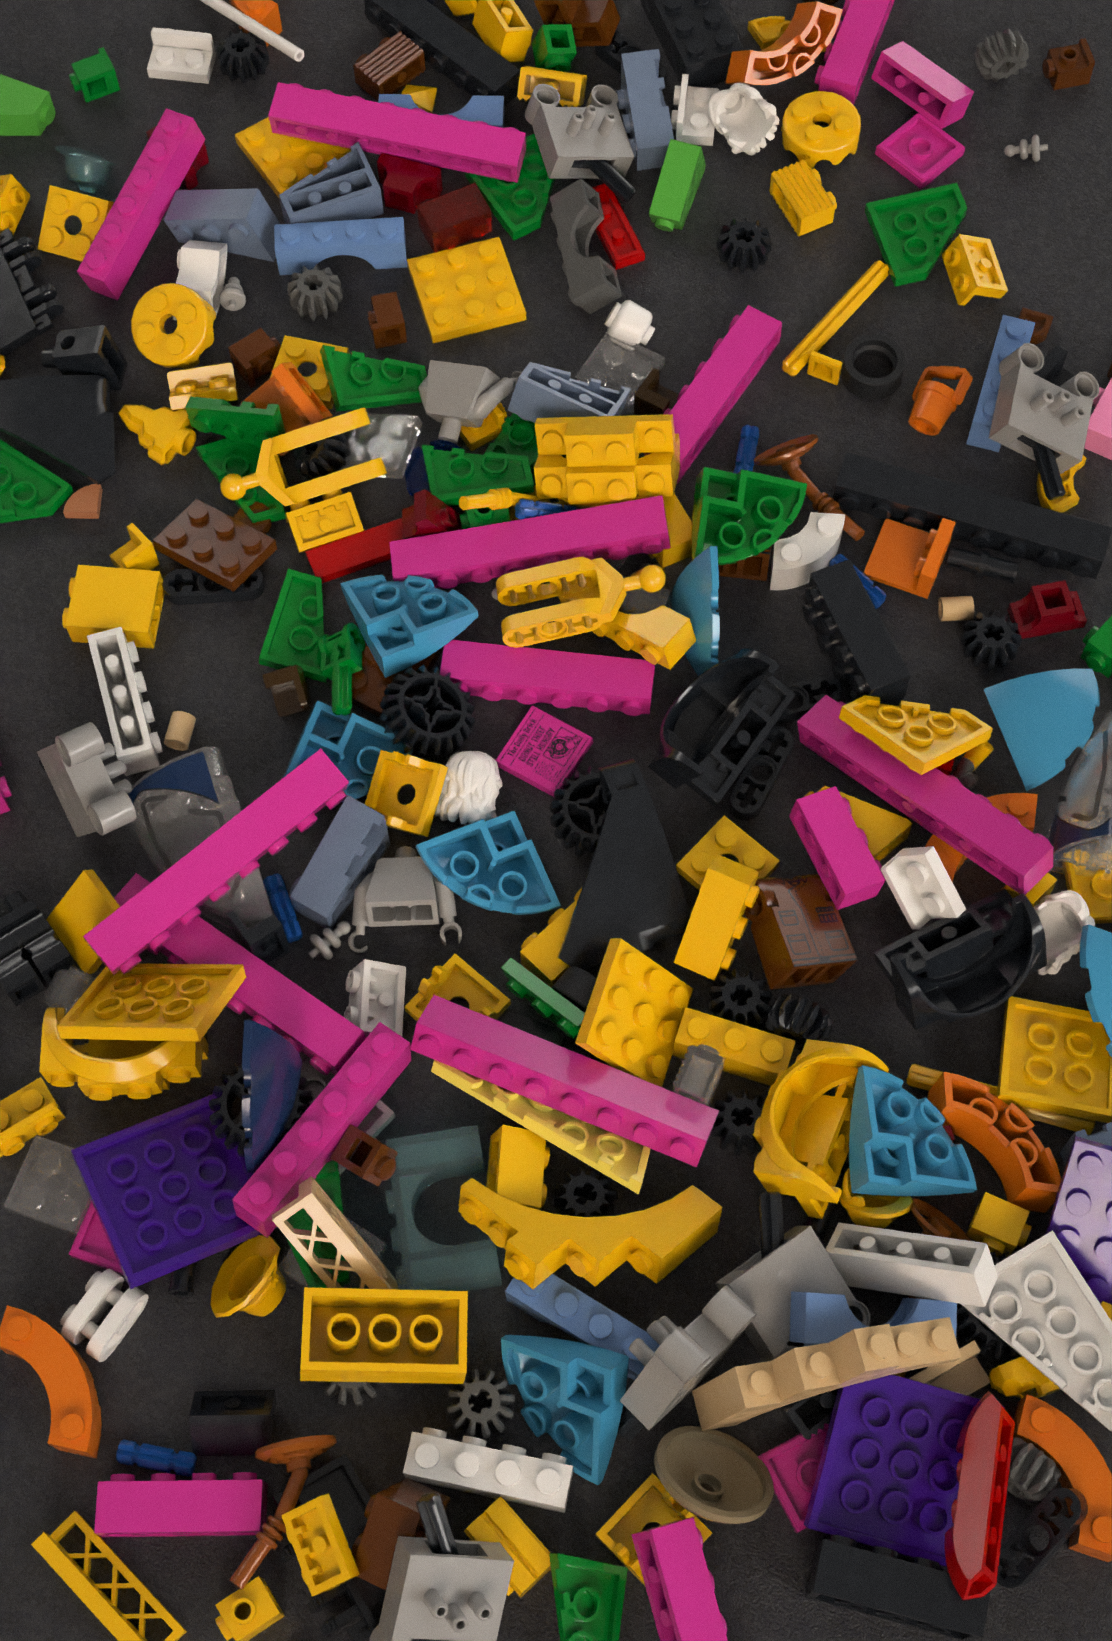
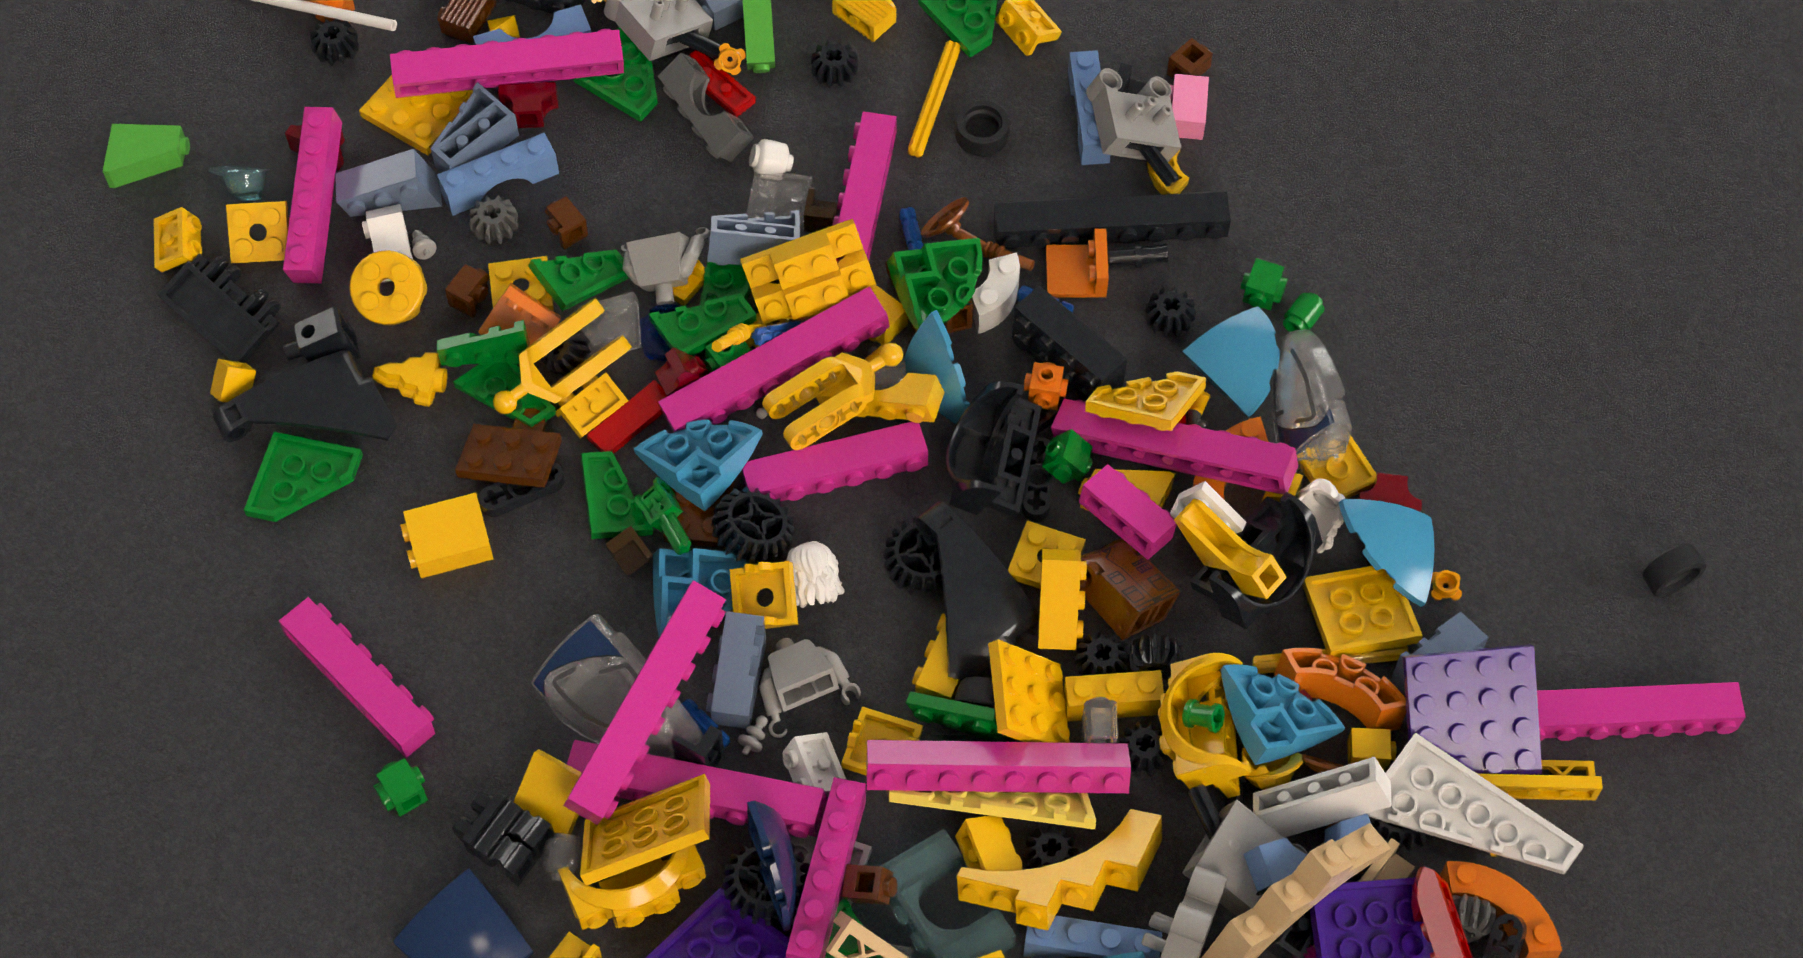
camera: 25 degrees left, 5 degrees down
(84, 503) = (377, 461): nougat tile -> none
(85, 783) = (501, 681): light grey piece -> none
(94, 76) = (211, 99): green brick -> none
(123, 700) = (495, 608): white brick -> none
(136, 553) = (445, 484): yellow panel -> none
(179, 730) = (550, 616): tan hinge -> none
(181, 55) = (278, 57): white bracket -> none
(207, 381) = (435, 325): yellow bracket -> none
(455, 218) = (584, 119): clear red brick -> none
(466, 290) = (619, 175): yellow plate -> none
(491, 866) = (862, 627): dark azure brick -> none
(544, 751) = (858, 524): dark pink tile -> none
(625, 207) = (729, 66): none -> light orange plate
(802, 761) = (1068, 457): none -> green brick
(811, 672) = (1046, 385): none -> orange brick
(816, 1113) = (1203, 715): none -> green bush
(824, 368) = (944, 141): yellow slope -> none
(922, 931) = (1223, 549): none -> yellow arch
(936, 400) = (1045, 138): orange piece -> none
(956, 608) = (1132, 297): tan hinge -> none
(1020, 1378) = (1436, 852): yellow rock -> none
(1042, 324) = (1100, 45): reddish brown tile -> none
(1047, 610) = (1204, 273): dark red brick -> none

